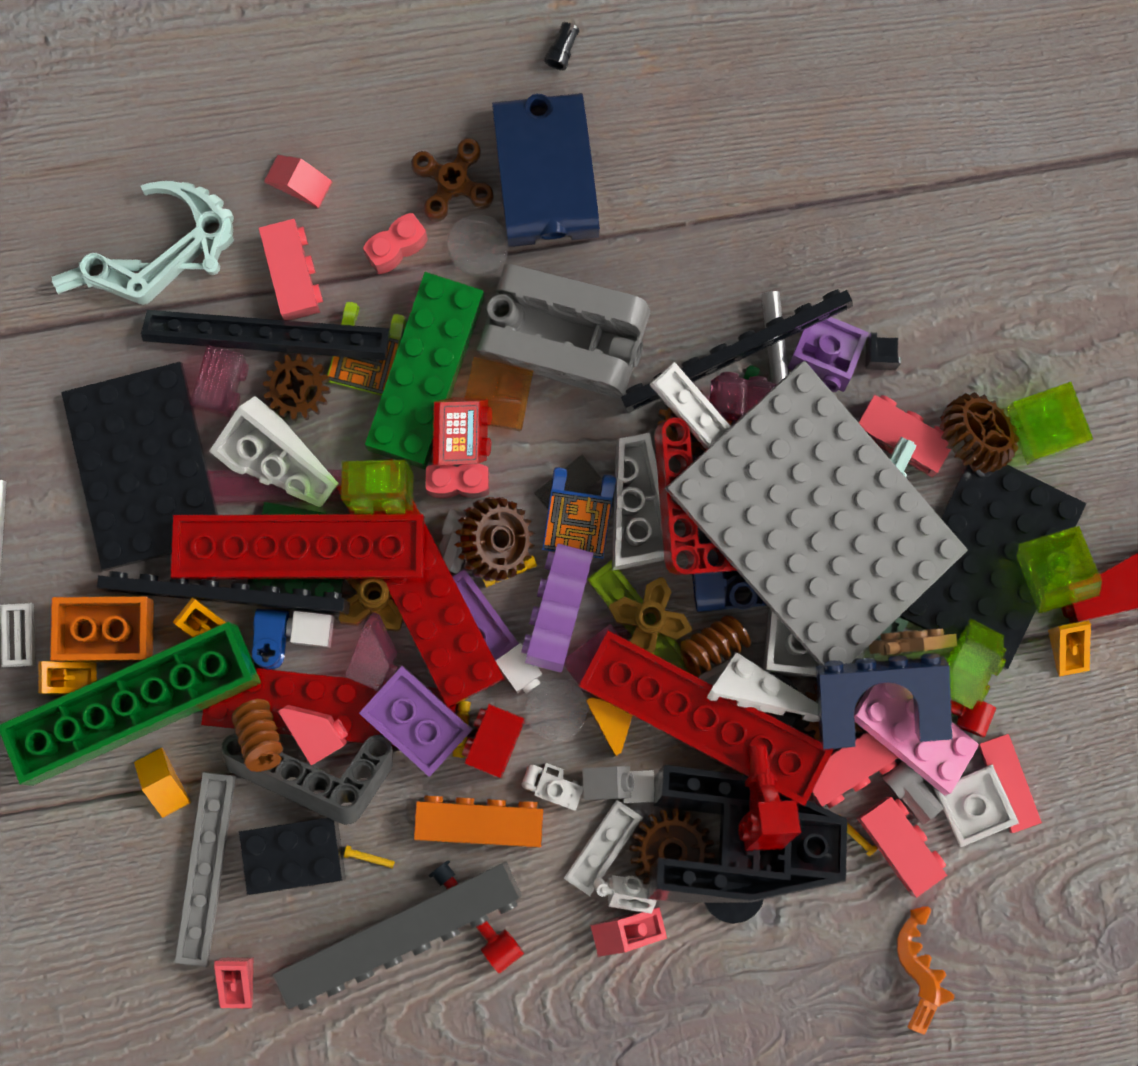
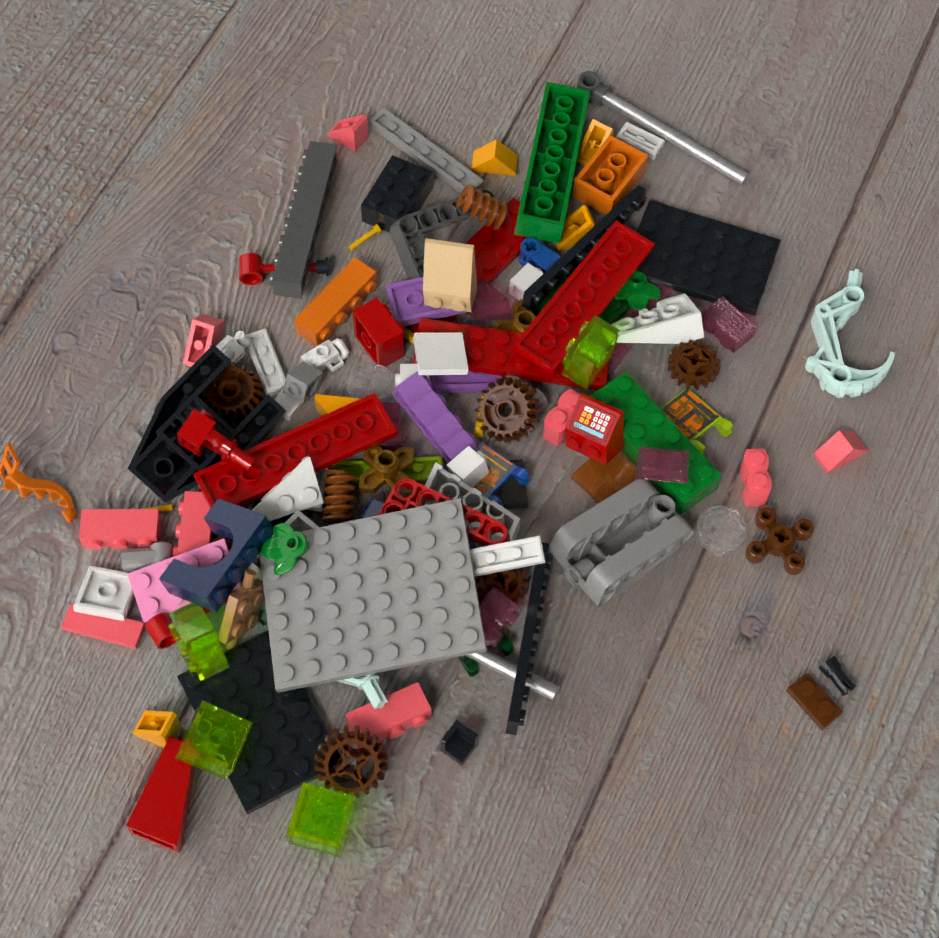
camera: 125 degrees right, 20 degrees down
(242, 499) = (638, 291): none -> green plate
(266, 334) = (740, 367): black plate -> none
(291, 269) = (778, 406): coral brick -> none
(314, 732) = (467, 234): coral slope -> none
(396, 692) = (449, 275): none -> tan slope
(465, 327) = (663, 465): none -> clear pink brick
(487, 645) = (440, 354): none -> white tile
(546, 169) = (748, 600): dark blue panel -> none
(589, 535) = (469, 466): none -> white brick
(602, 55) = (814, 701): none -> reddish brown plate
(830, 351) = (484, 704): medium lavender plate -> none
(836, 639) = (281, 548): none -> green plate

